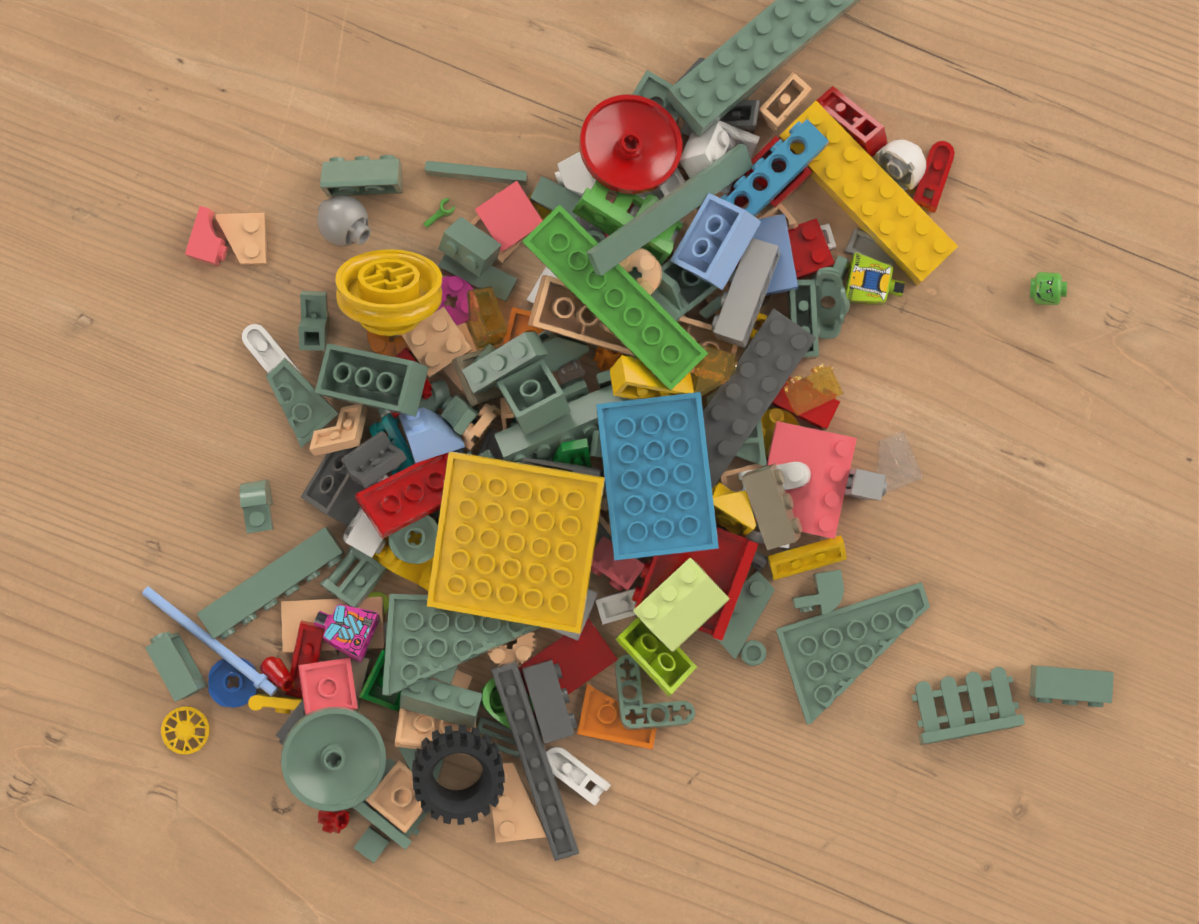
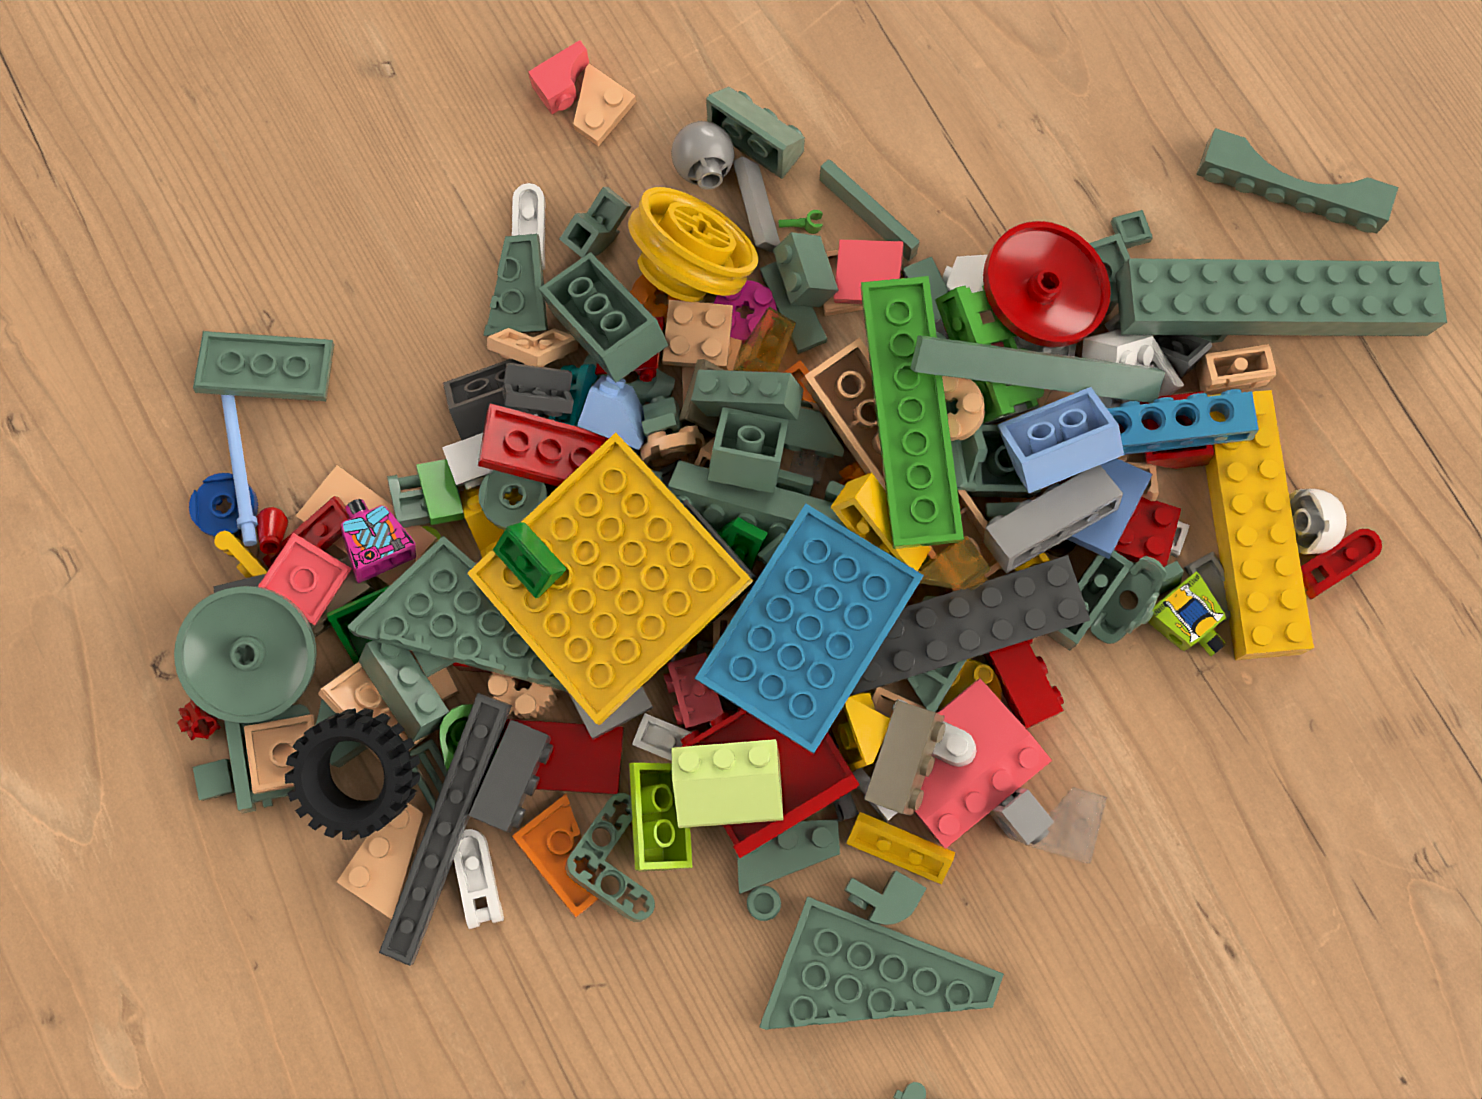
camera: 40 degrees right, 10 degrees down
(175, 665) = (180, 442): sand green window -> none
(181, 577) = (264, 366): none -> sand green tile
(185, 730) = (138, 517): yellow wheel -> none
(256, 502) = (393, 349): sand green brick -> none
(271, 583) = (340, 439): sand green brick -> none
(362, 568) = (439, 492): none -> bright green tile
(402, 225) = (756, 204): none -> light grey tile
(459, 568) = (528, 558): none -> green slope
(649, 54) = (1132, 228): none -> sand green tile
(812, 390) = (1044, 673): clear yellow bracket -> none
(854, 120) = (1299, 448): red slope -> none
(1047, 288) = (1378, 770): bright green head -> none

